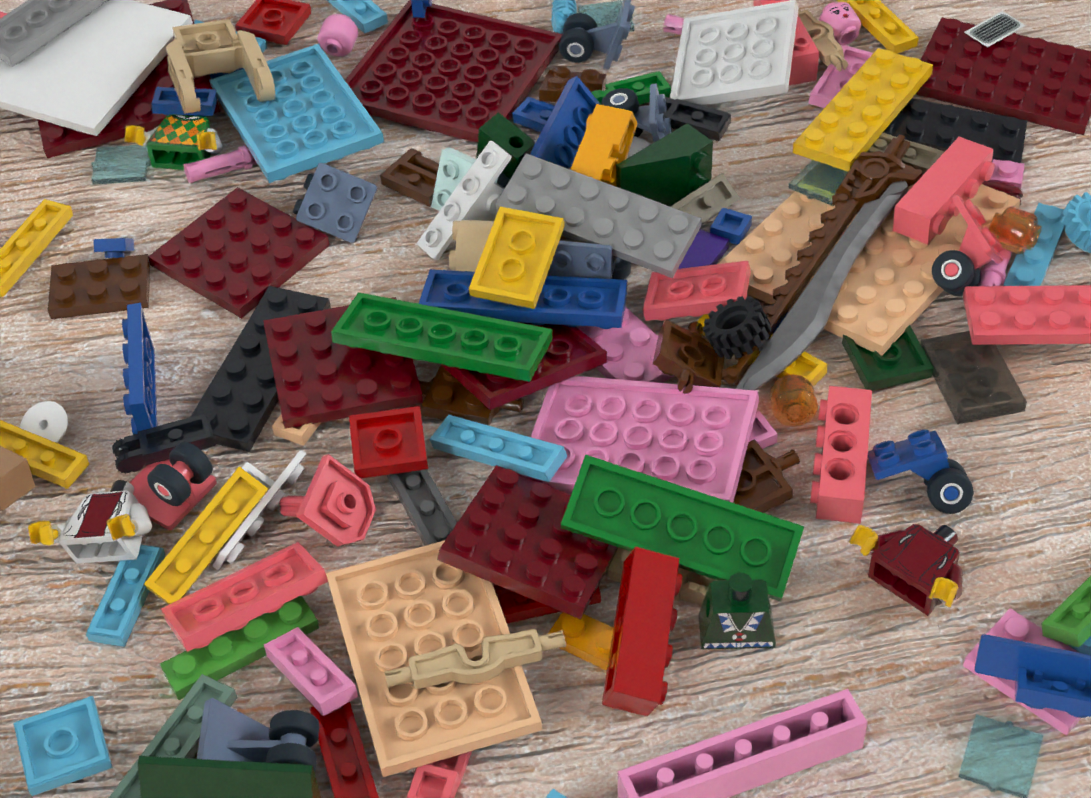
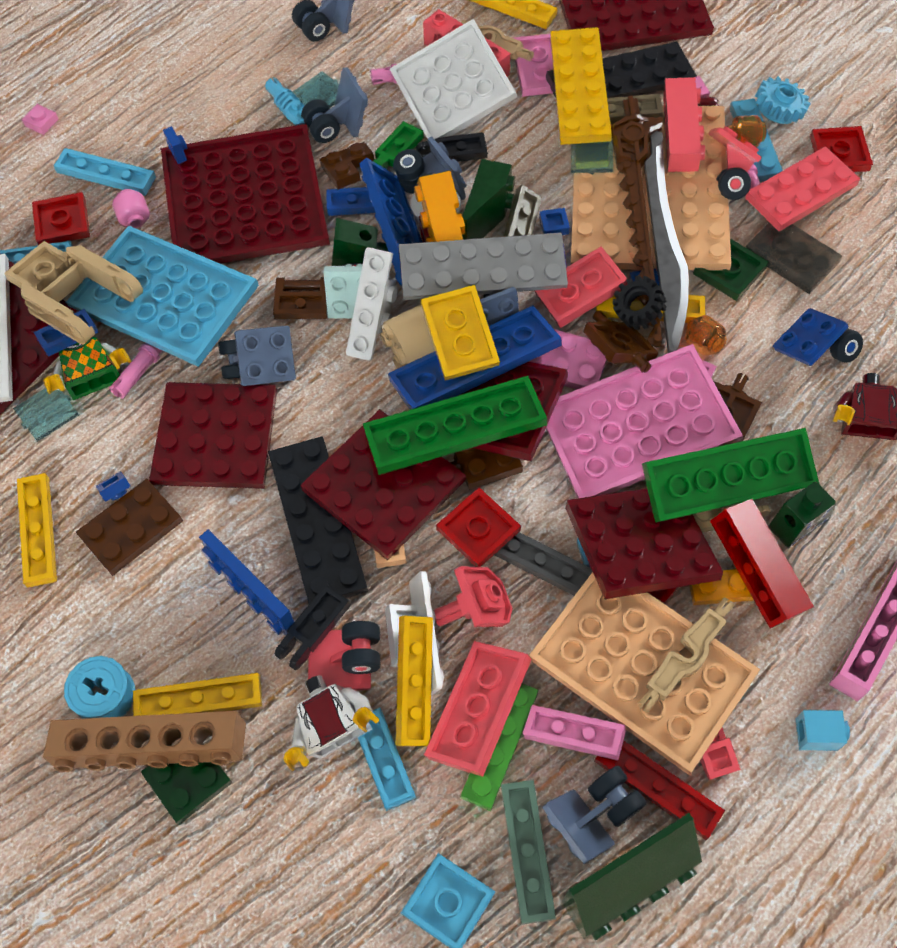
camera: 35 degrees left, 15 degrees up
(46, 420) = (196, 664): white piece -> none
(499, 447) = (553, 485): medium azure plate -> none
(842, 20) = (495, 16): bright pink head -> none
(843, 455) = (779, 361): coral brick -> none

